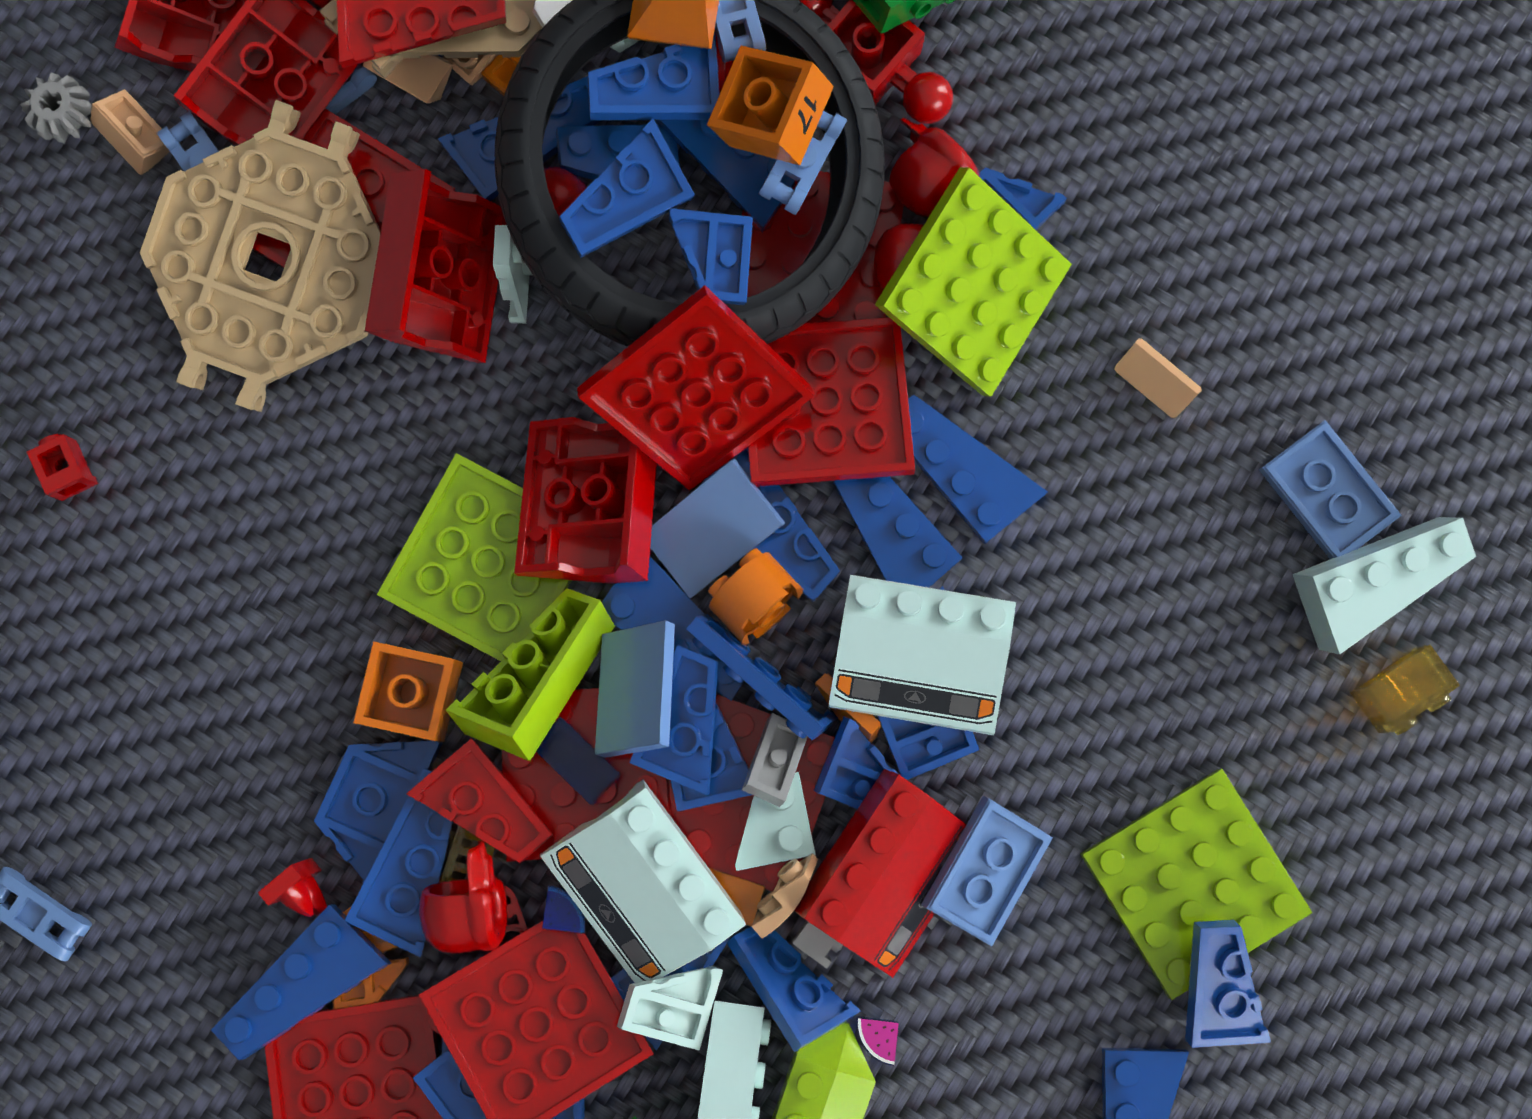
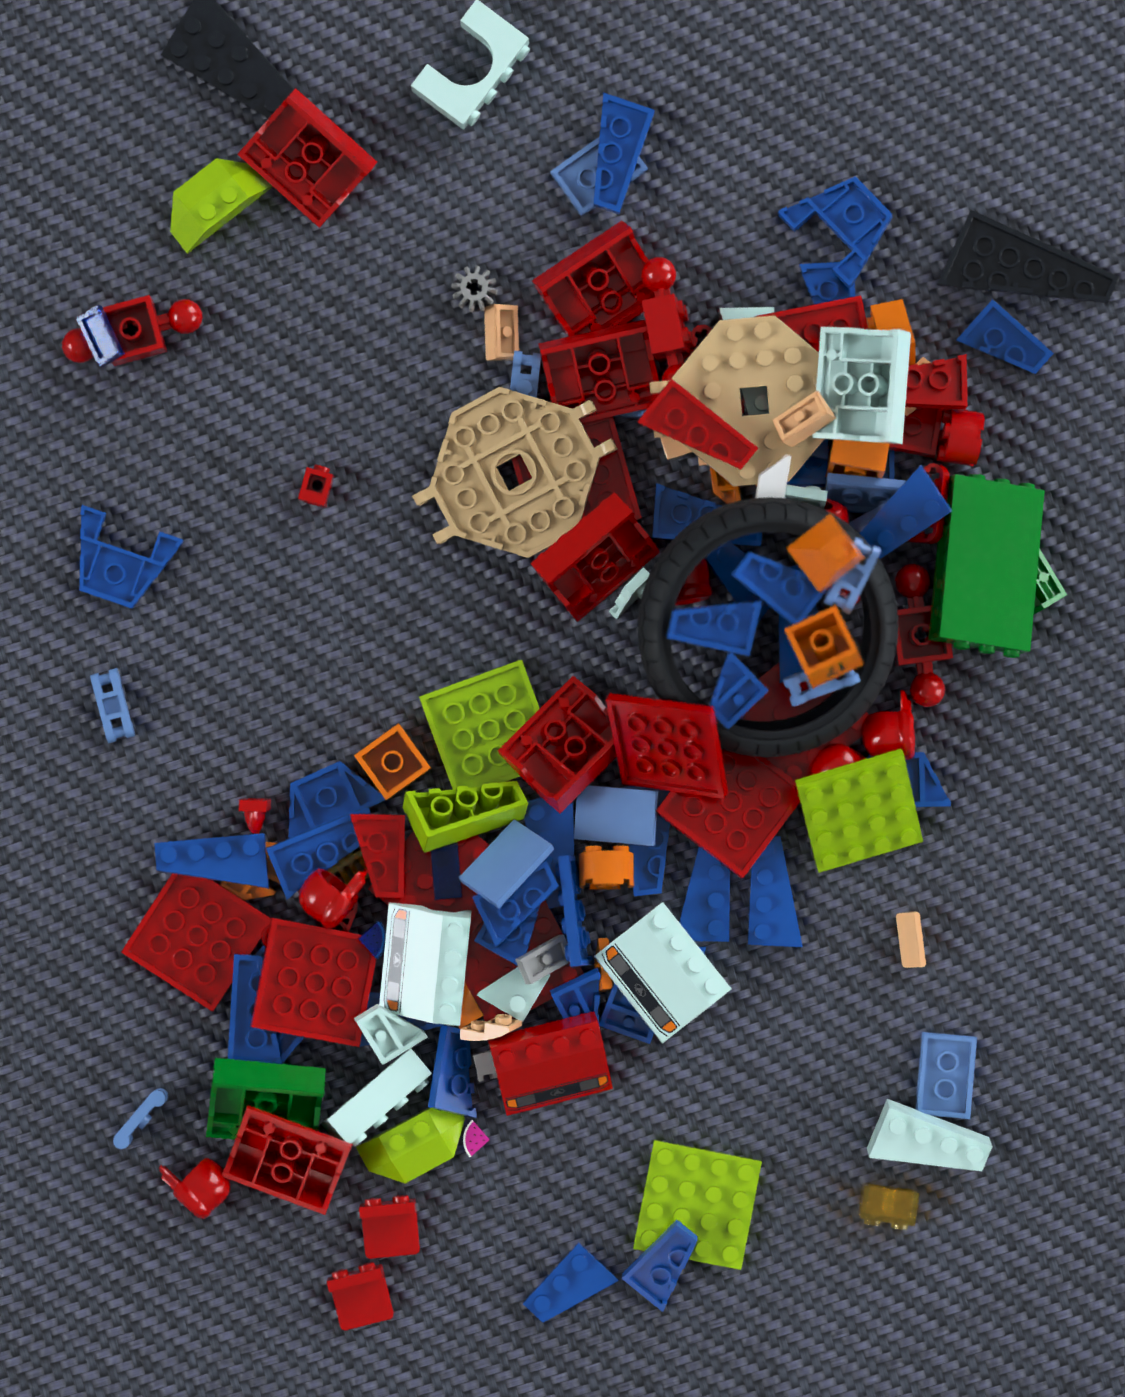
camera: 30 degrees right, 5 degrees up
(987, 871) = (599, 1106): medium blue tile -> none

